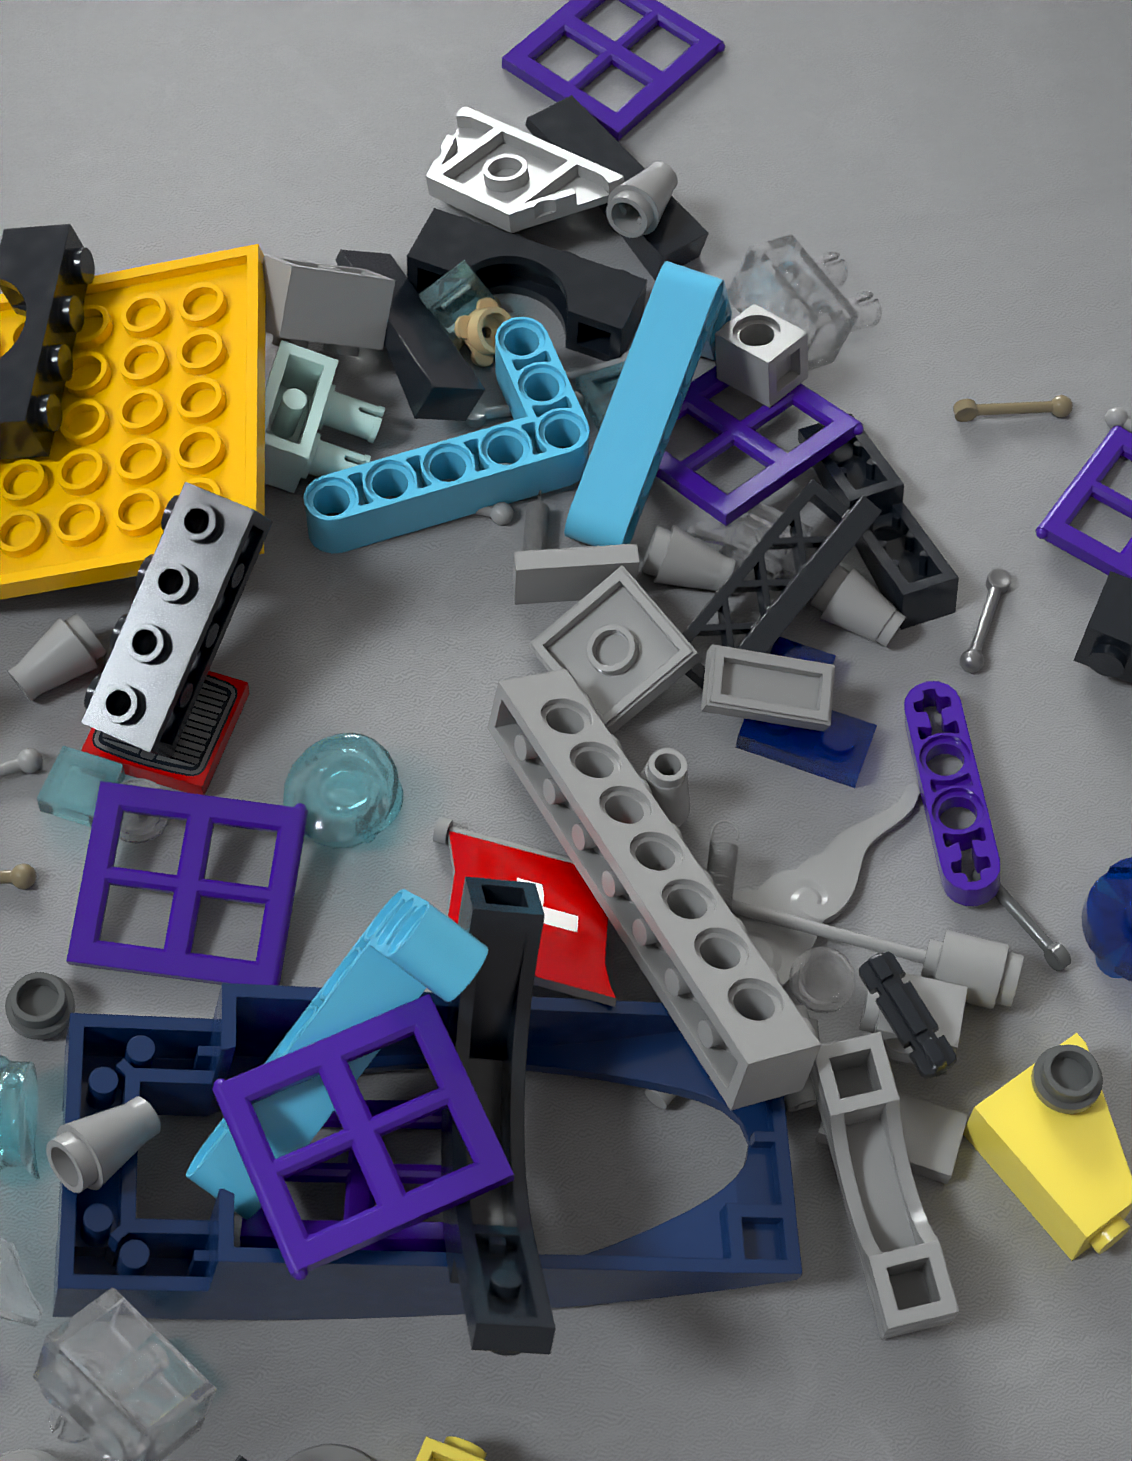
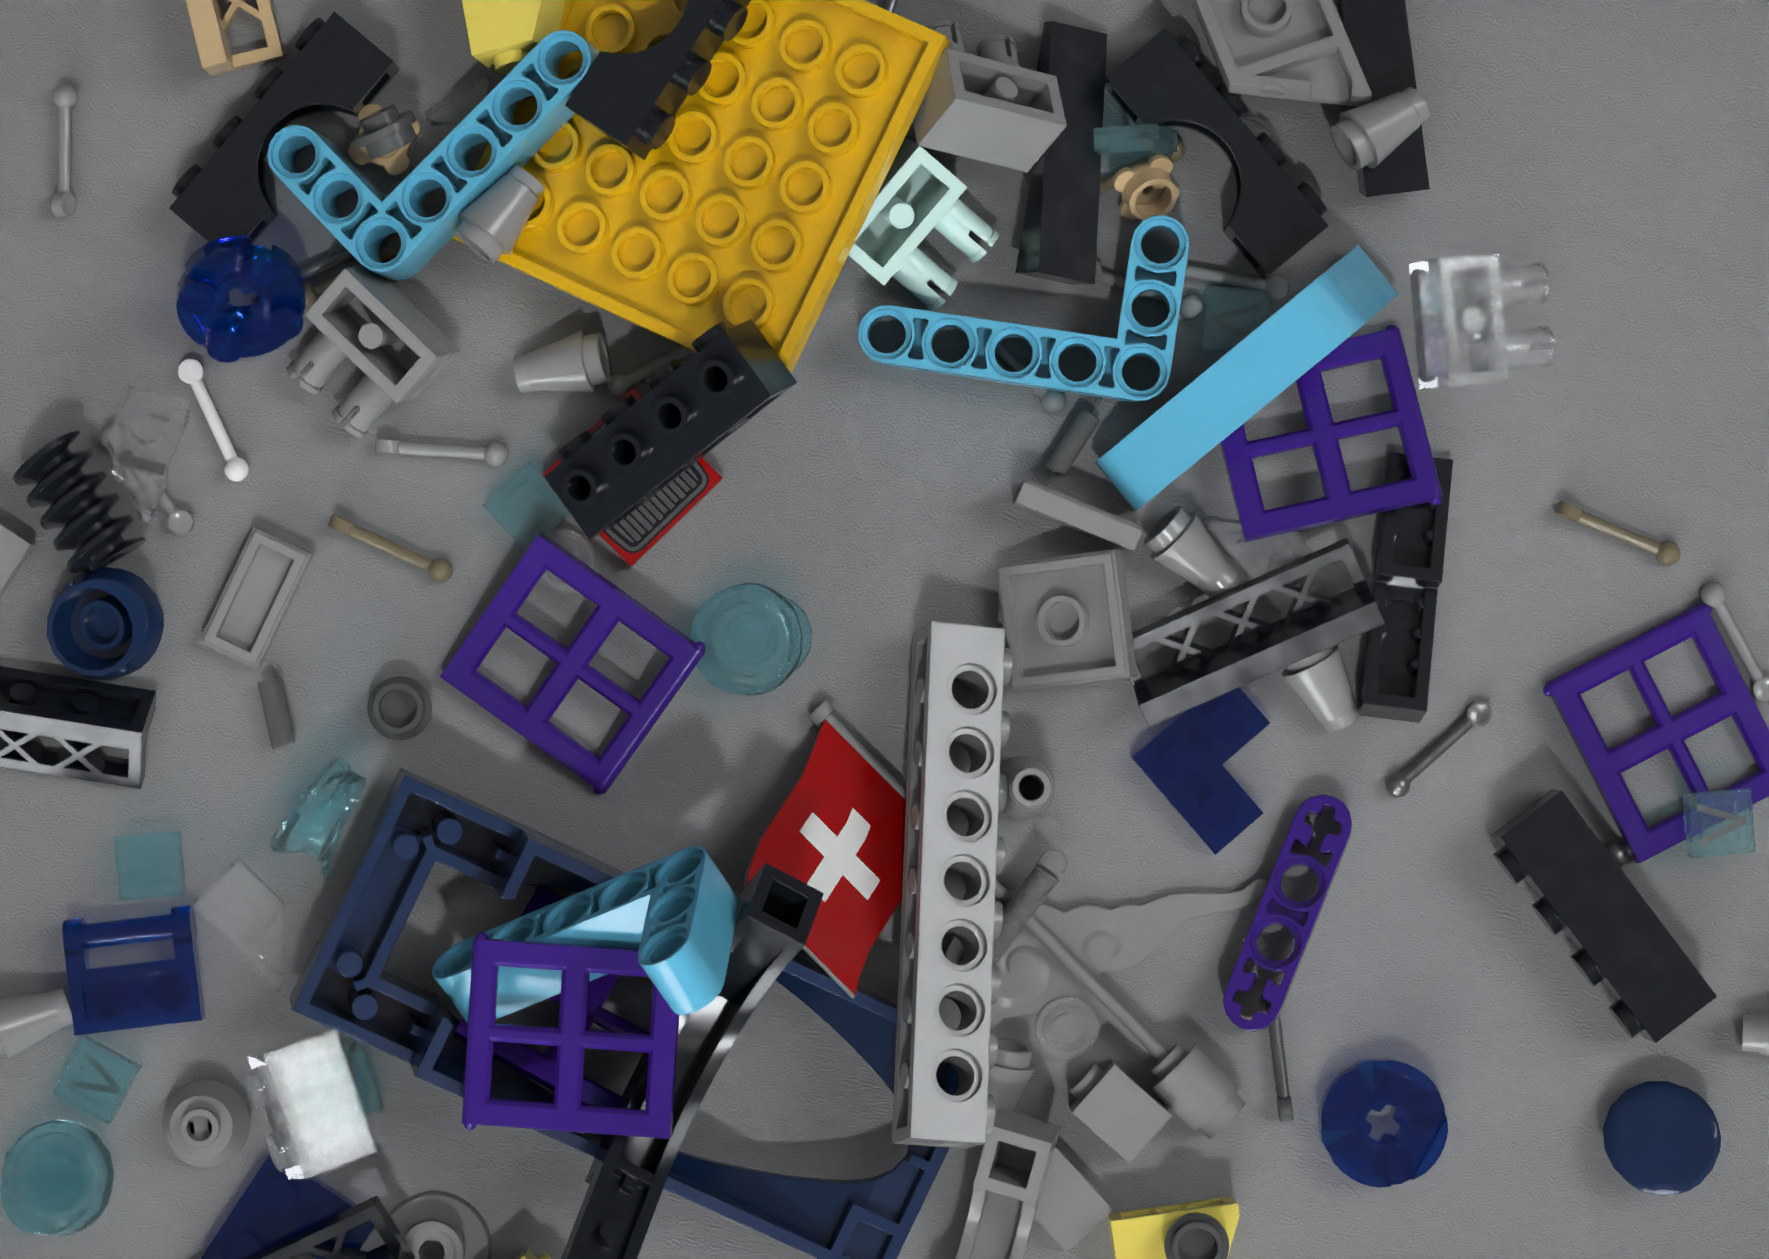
camera: 30 degrees right, 30 degrees up
(98, 1145) = (375, 914): light grey cone -> none
(761, 355) = (1383, 396): light grey brick -> none
(768, 688) = (1173, 745): light grey tile -> none
(907, 1015) = (1099, 1121): black axle -> none

